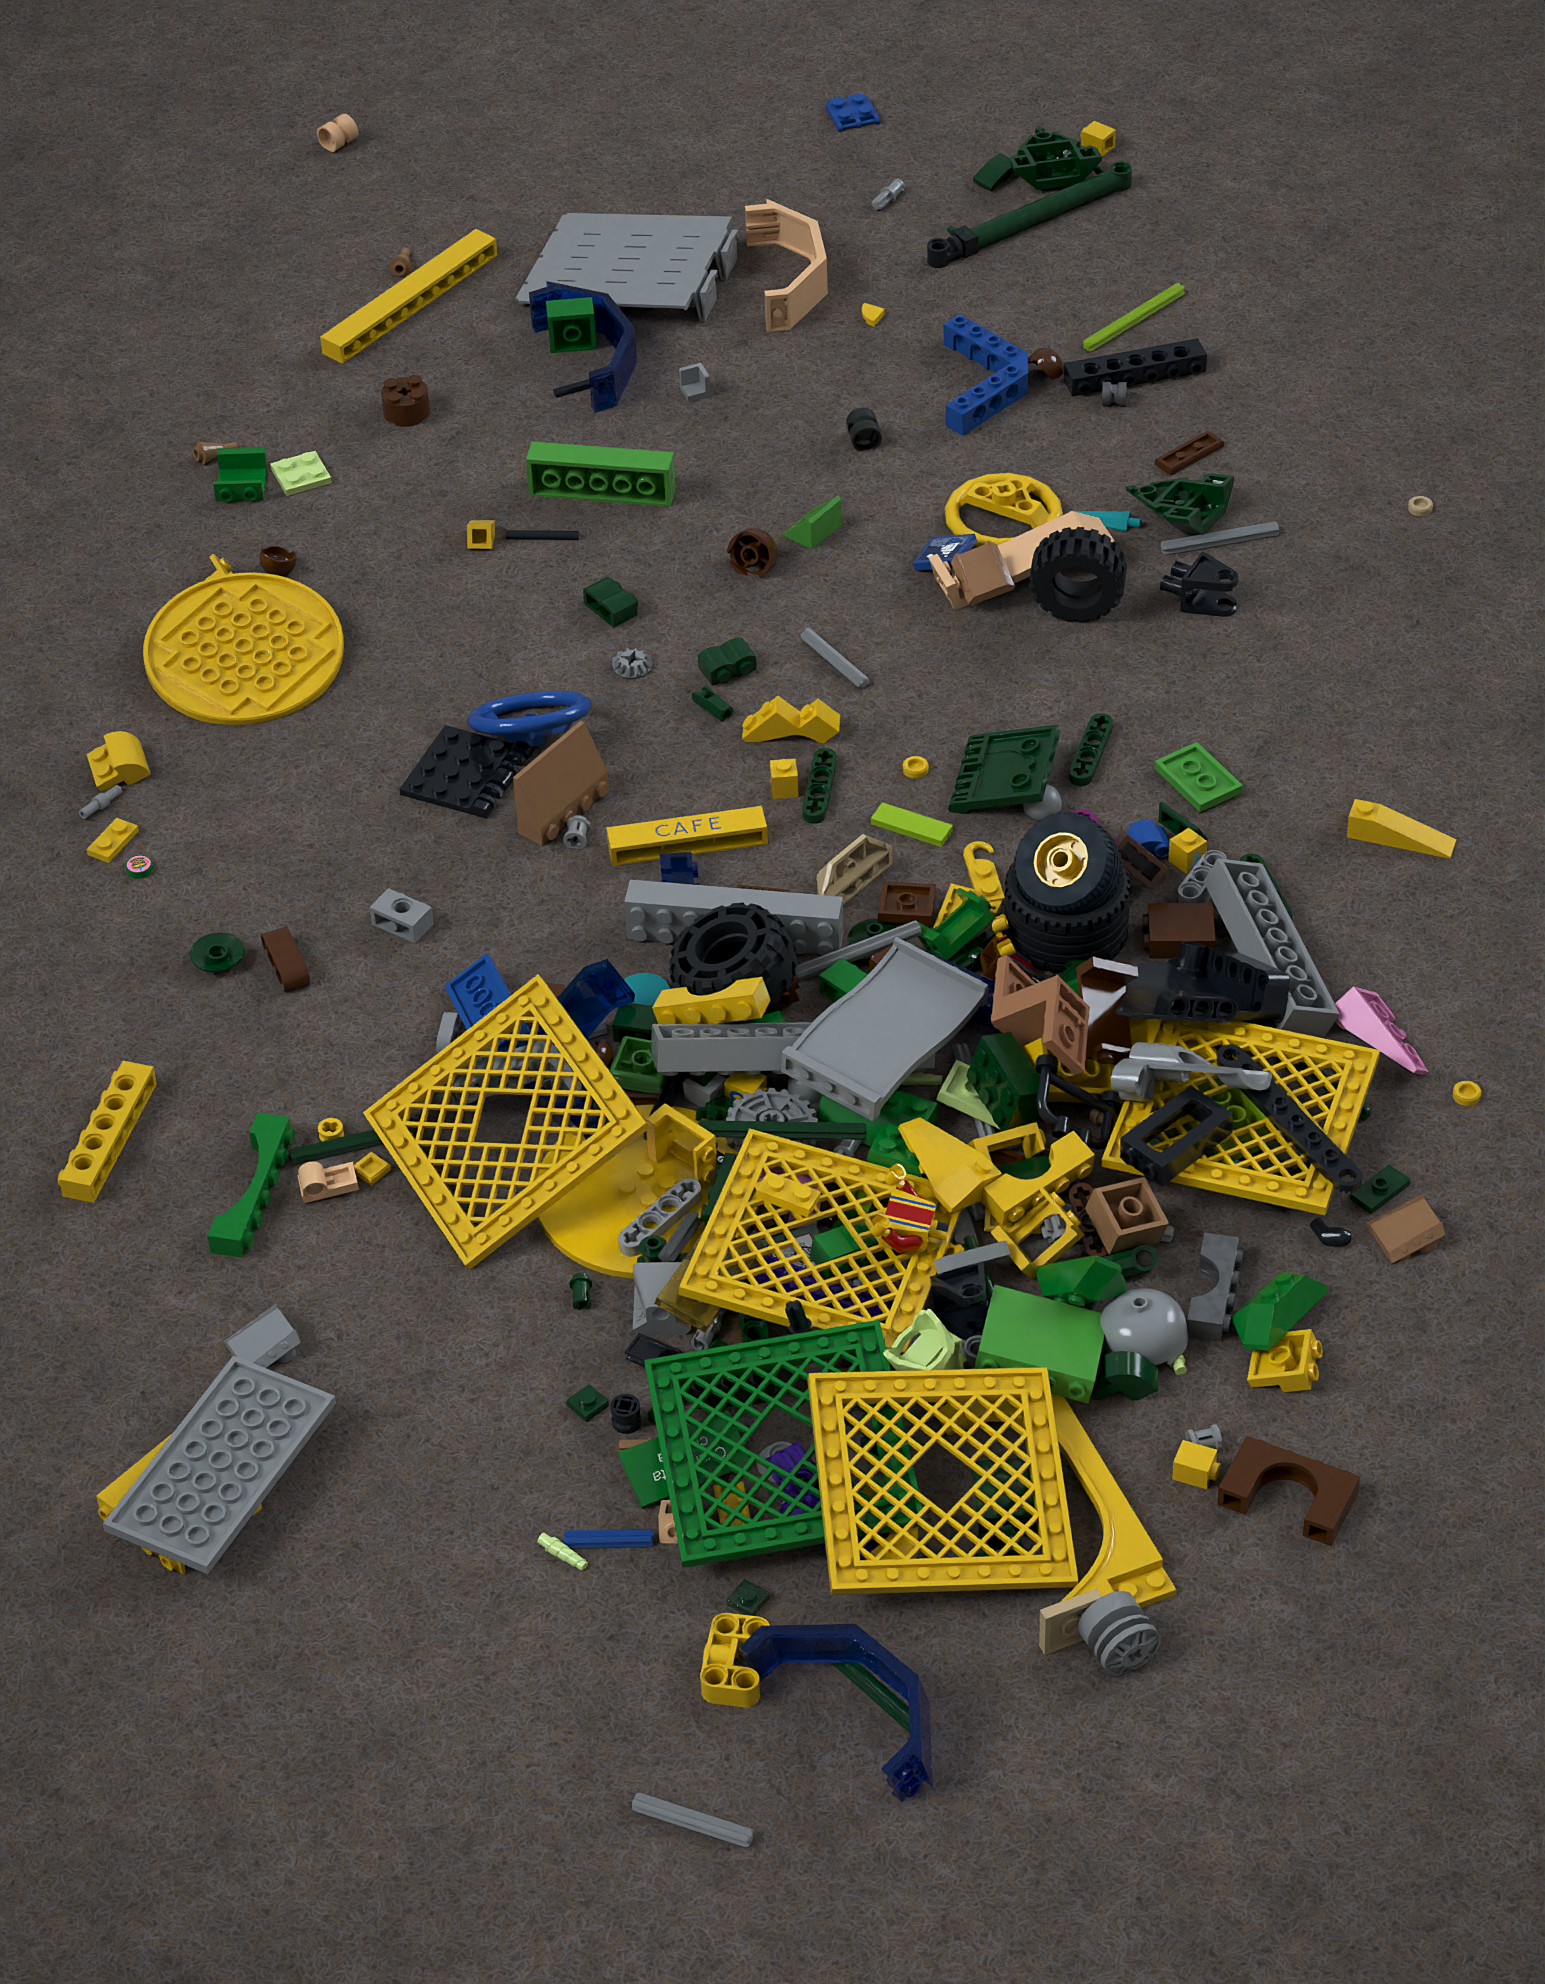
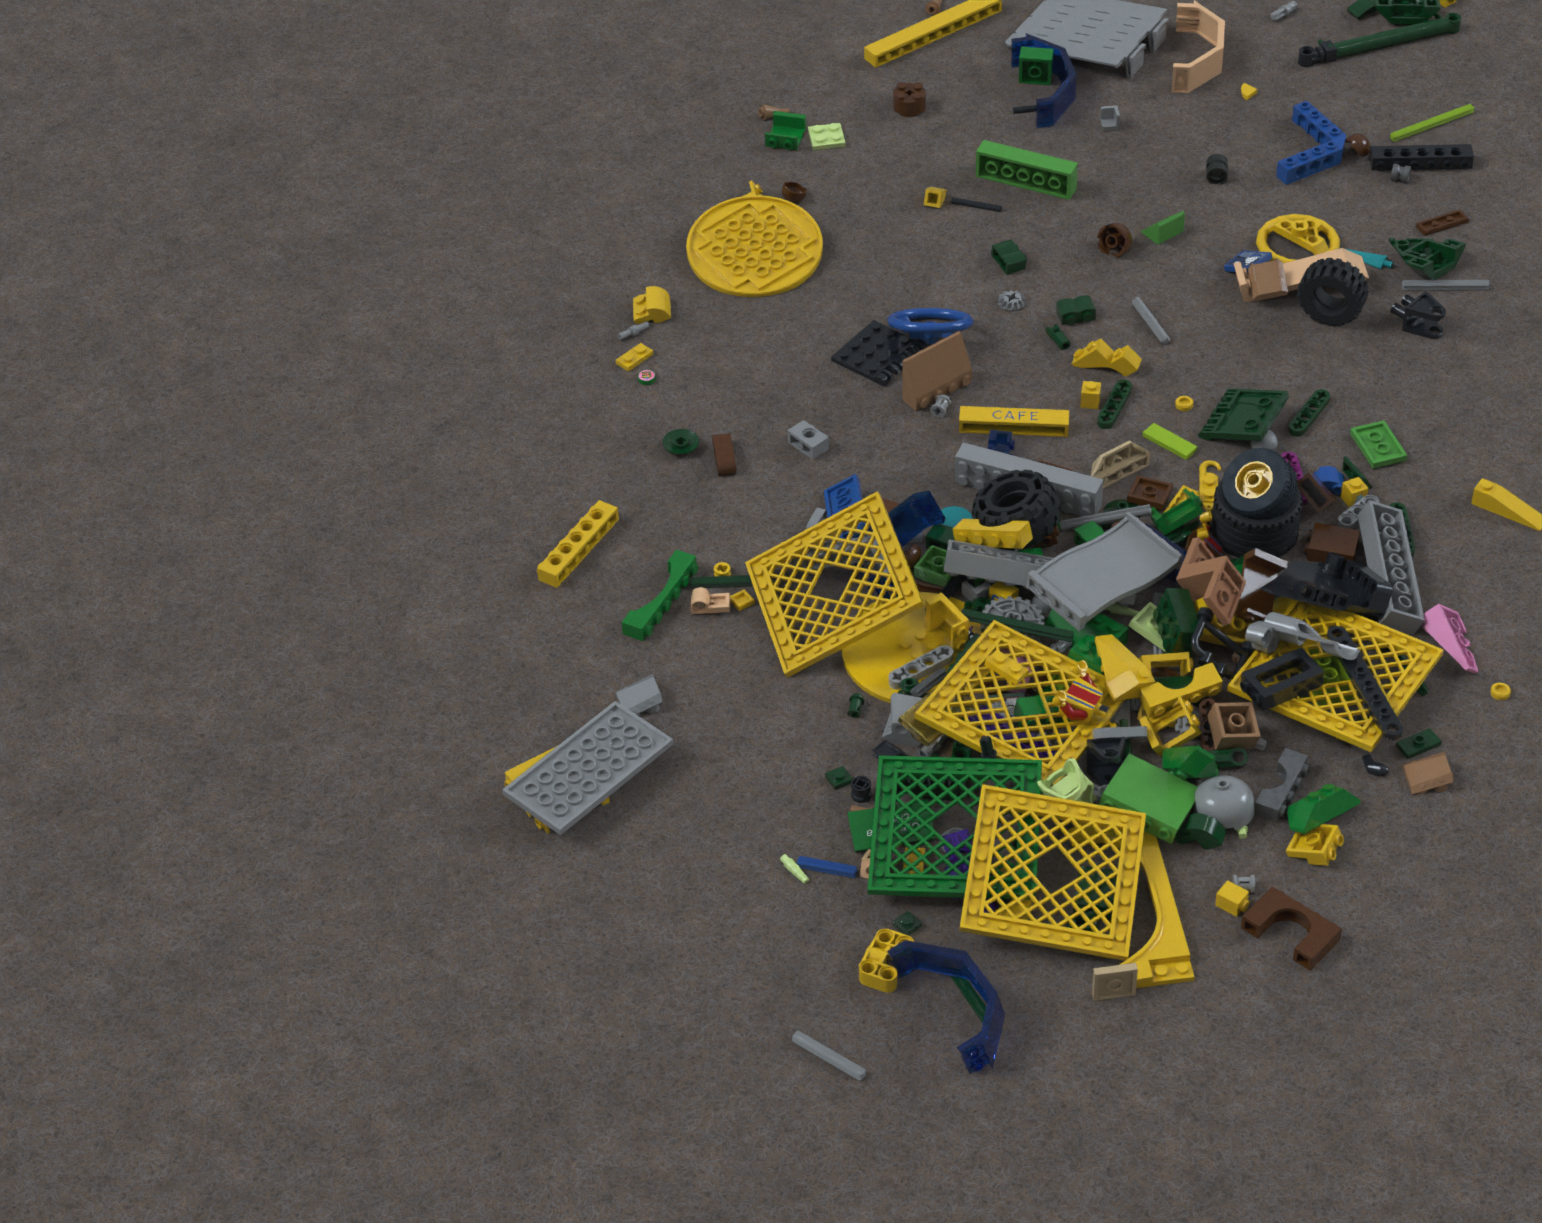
camera: 15 degrees right, 0 degrees up
(1119, 1633) = (1145, 995): light grey wheel -> none

